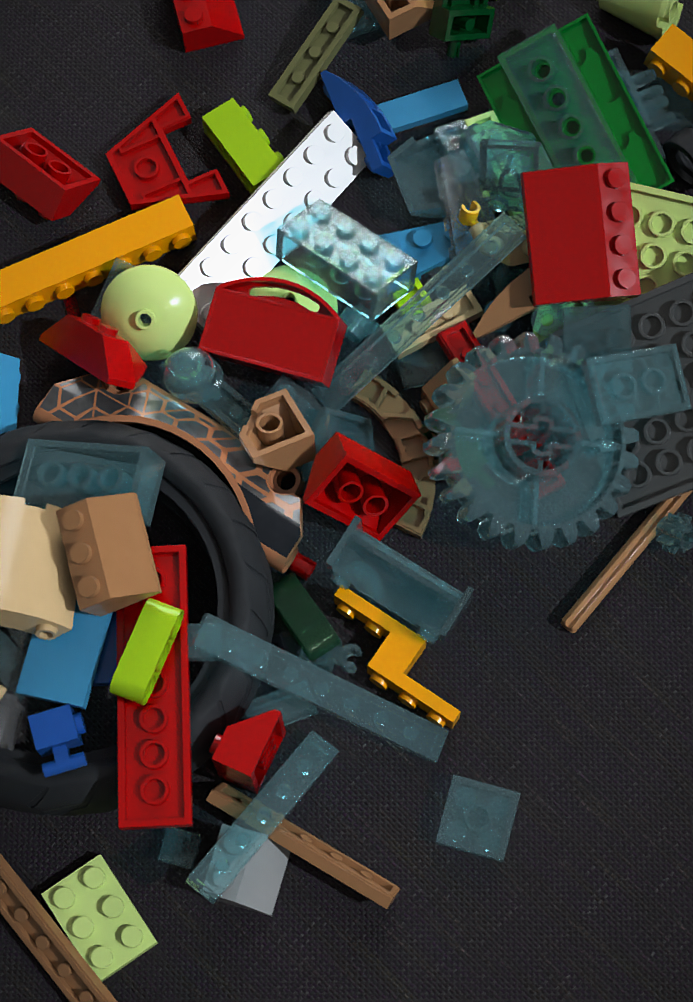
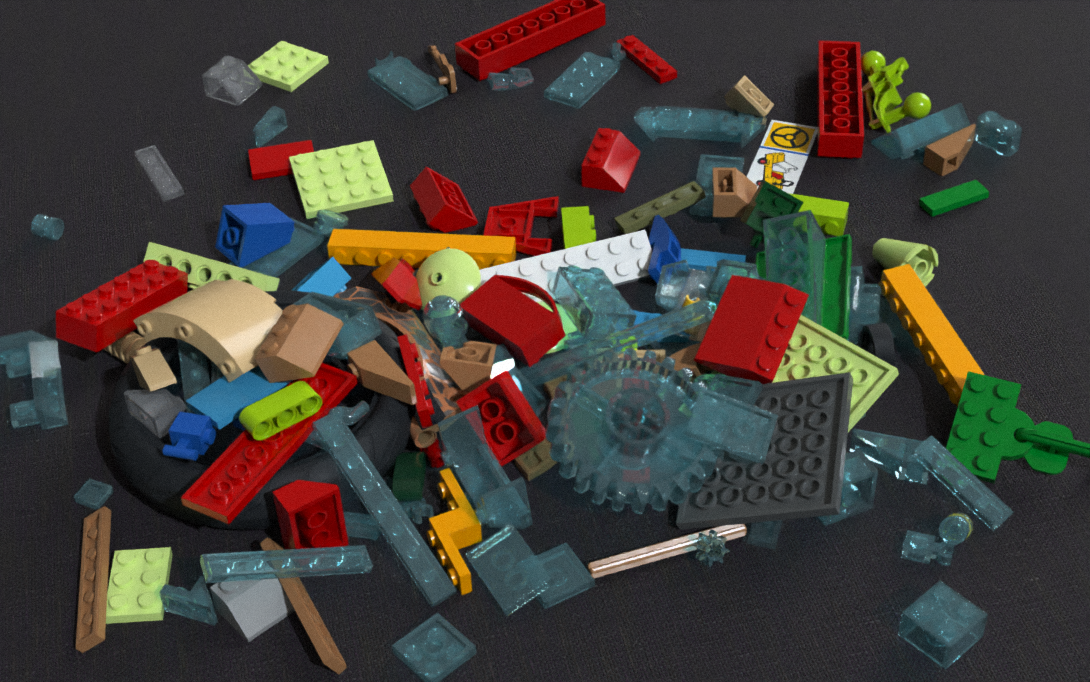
camera: 30 degrees right, 30 degrees down
(191, 909) = (190, 604): none -> clear light blue slope
(204, 524) = (380, 373): none -> medium nougat slope
(212, 603) = (352, 415): none -> clear light blue arm
(252, 509) = (414, 371): none -> red plate
(487, 675) = (509, 569): none -> clear light blue tile
(535, 652) = (566, 572): none -> clear light blue tile

